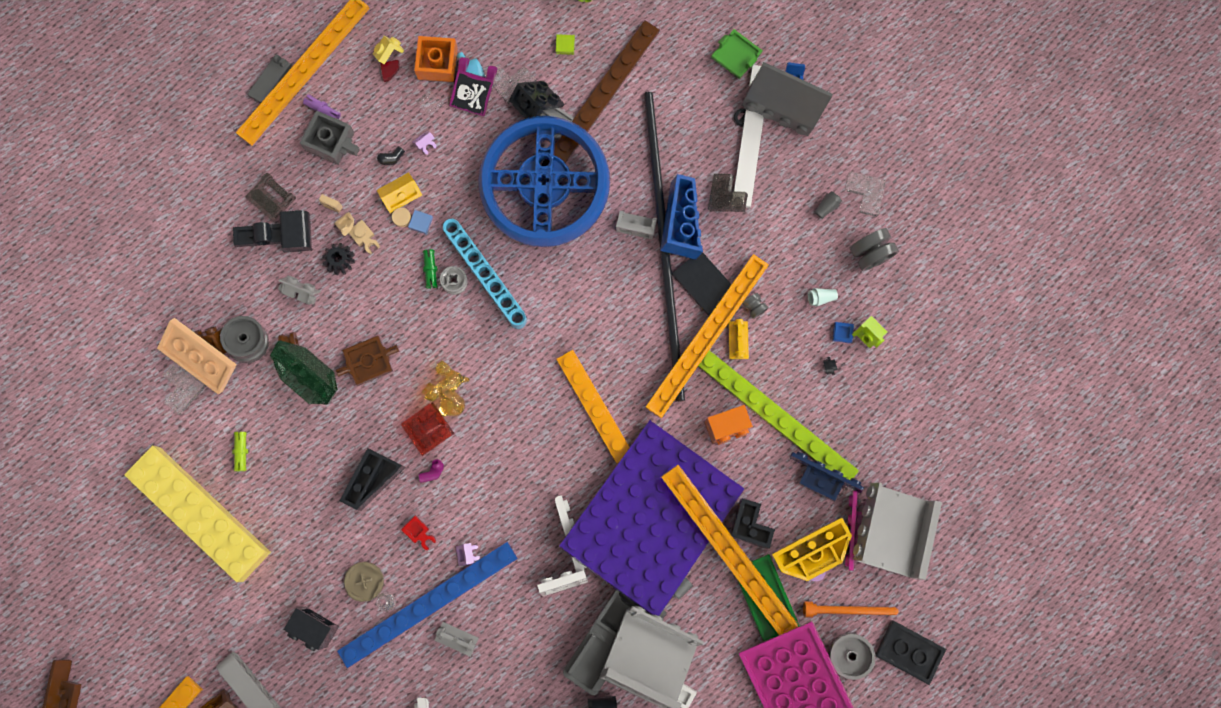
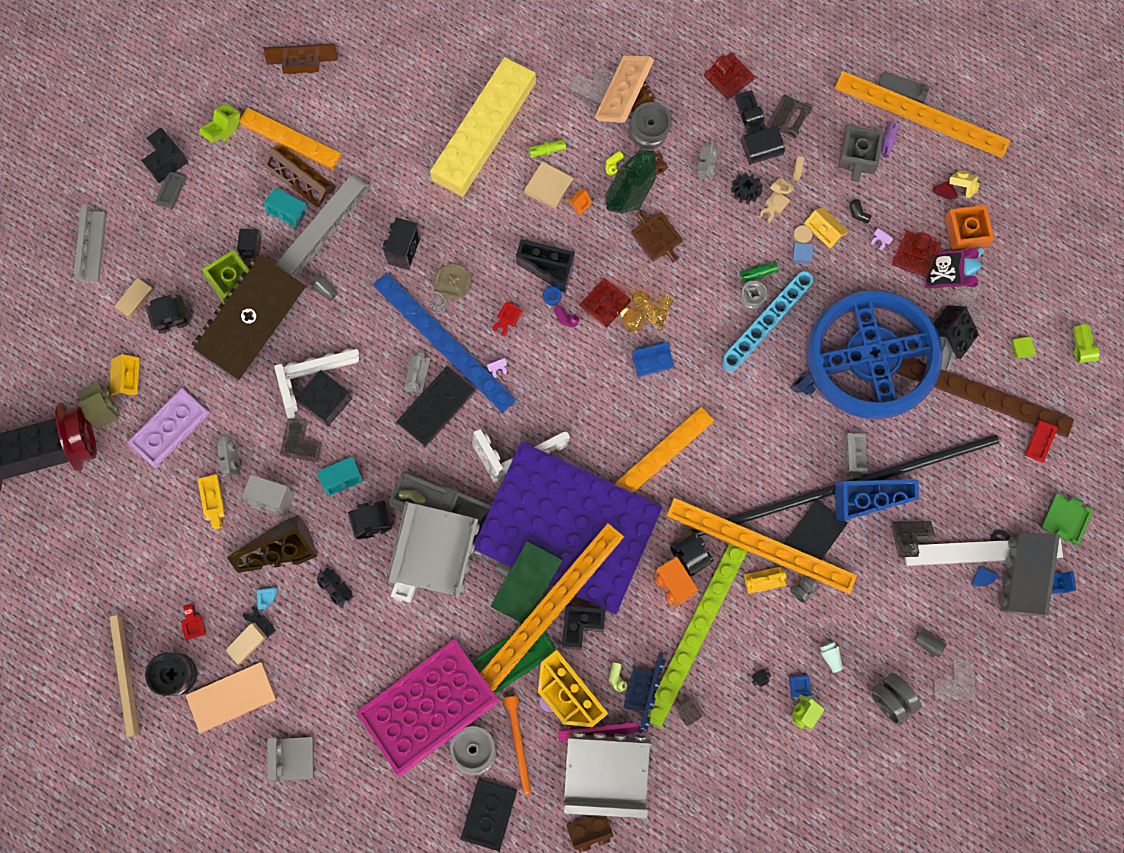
camera: 80 degrees right, 5 degrees down
(209, 246) = (729, 75): none -> clear red plate
(274, 388) = (611, 163): none -> neon yellow arm
(282, 458) = (548, 185): none -> tan tile
(309, 429) = (580, 201): none -> orange tile
(405, 481) = (552, 296): none -> blue tile
(449, 114) = (917, 253): none -> clear red plate
(496, 626) = (436, 406): none -> black plate
(497, 395) = (652, 359): none -> blue bracket
(556, 255) = (803, 384): none -> dark blue tile
(591, 667) = (414, 495): none -> olive arm
(659, 55) = (1040, 441): none -> red plate
(700, 569) = (526, 581): none -> dark green tile
(702, 402) = (691, 552): none -> black brick
(775, 142) = (983, 577): none -> blue tile
(806, 502) = (615, 678): none -> yellowish green arm
(847, 440) = (689, 710): none -> clear smoke panel
(943, 559) = (589, 831): none -> reddish brown bracket

